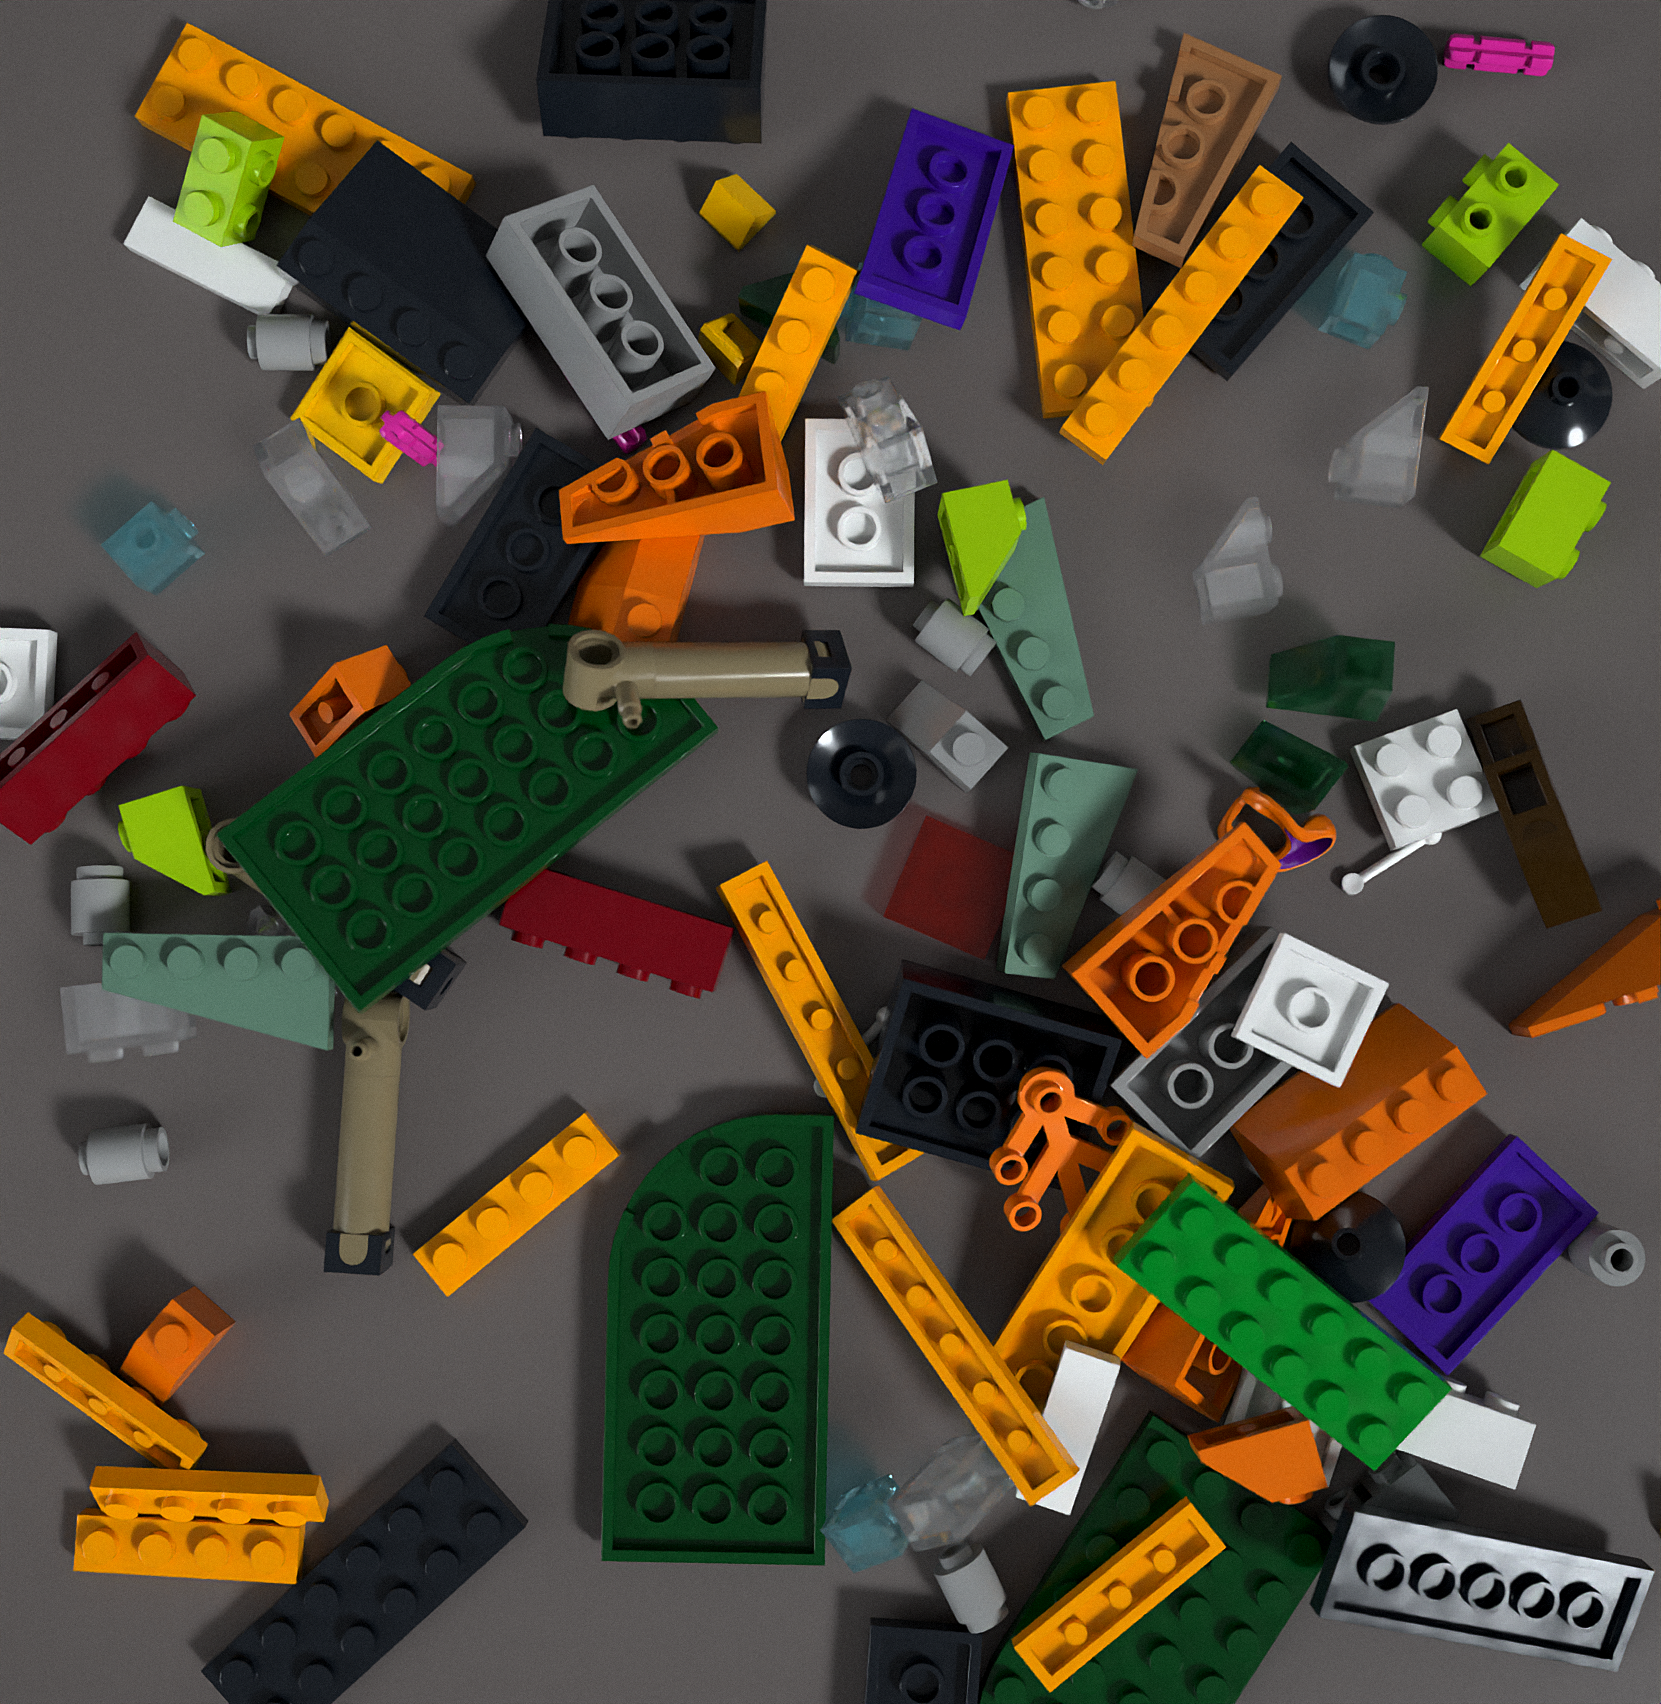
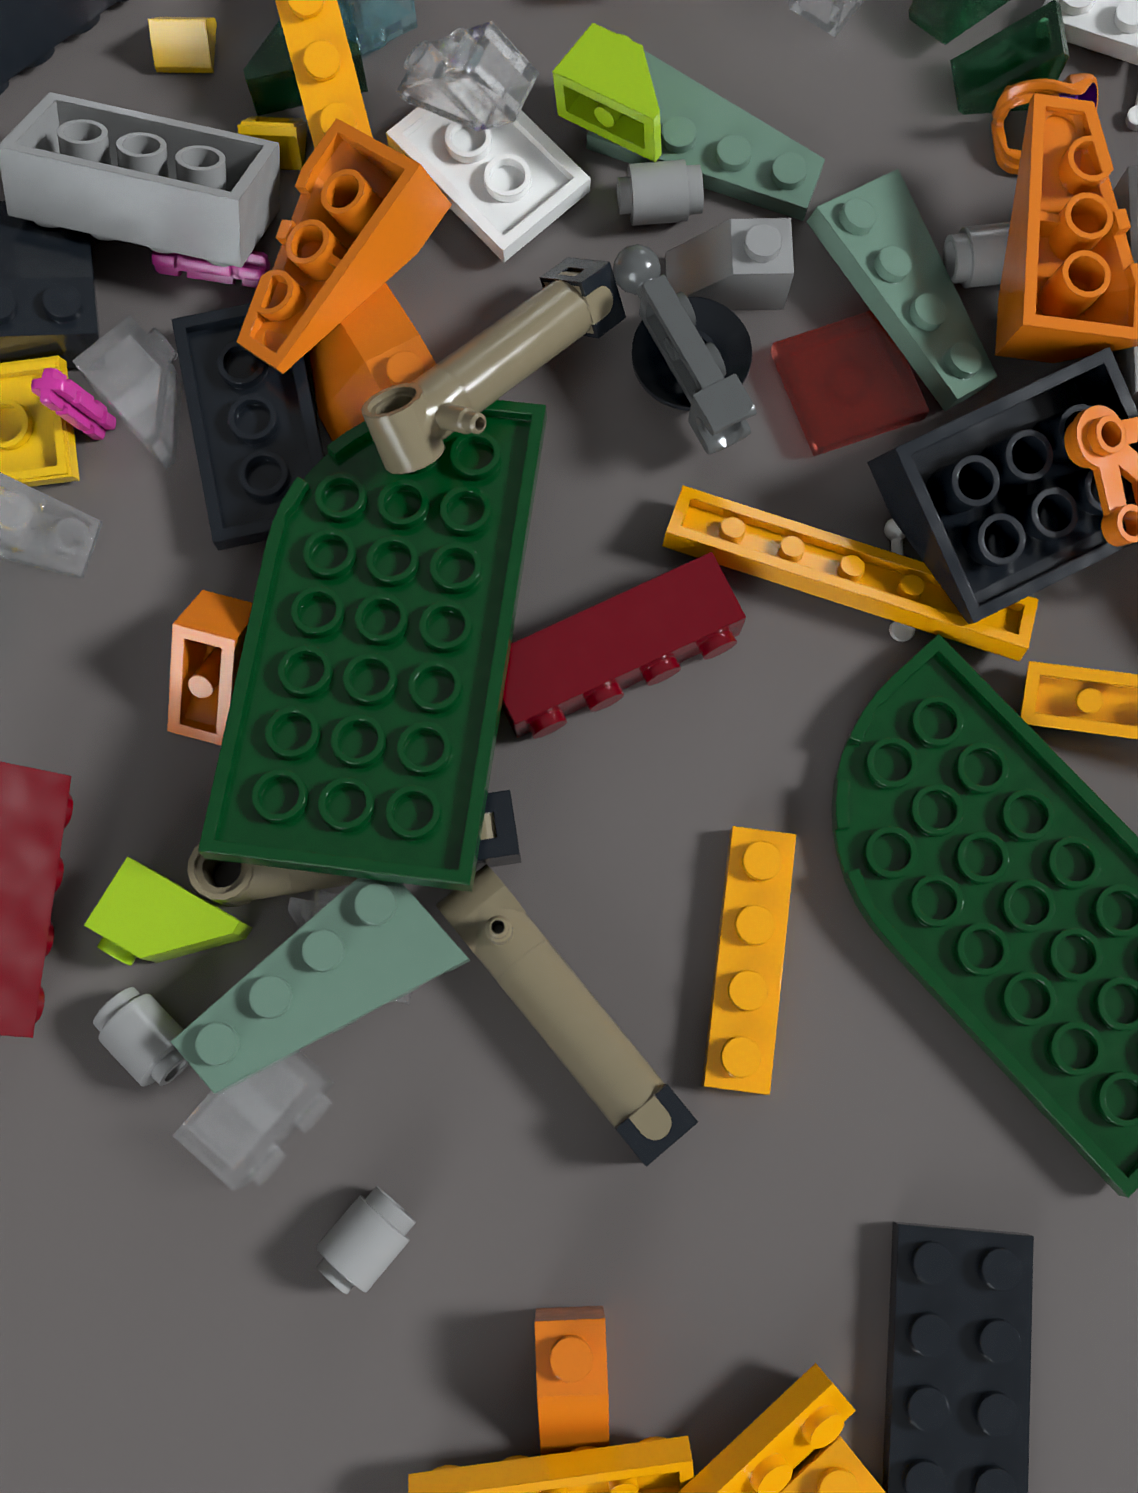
camera: 40 degrees left, 10 degrees down
(828, 837) = (716, 402): none -> dark grey plate

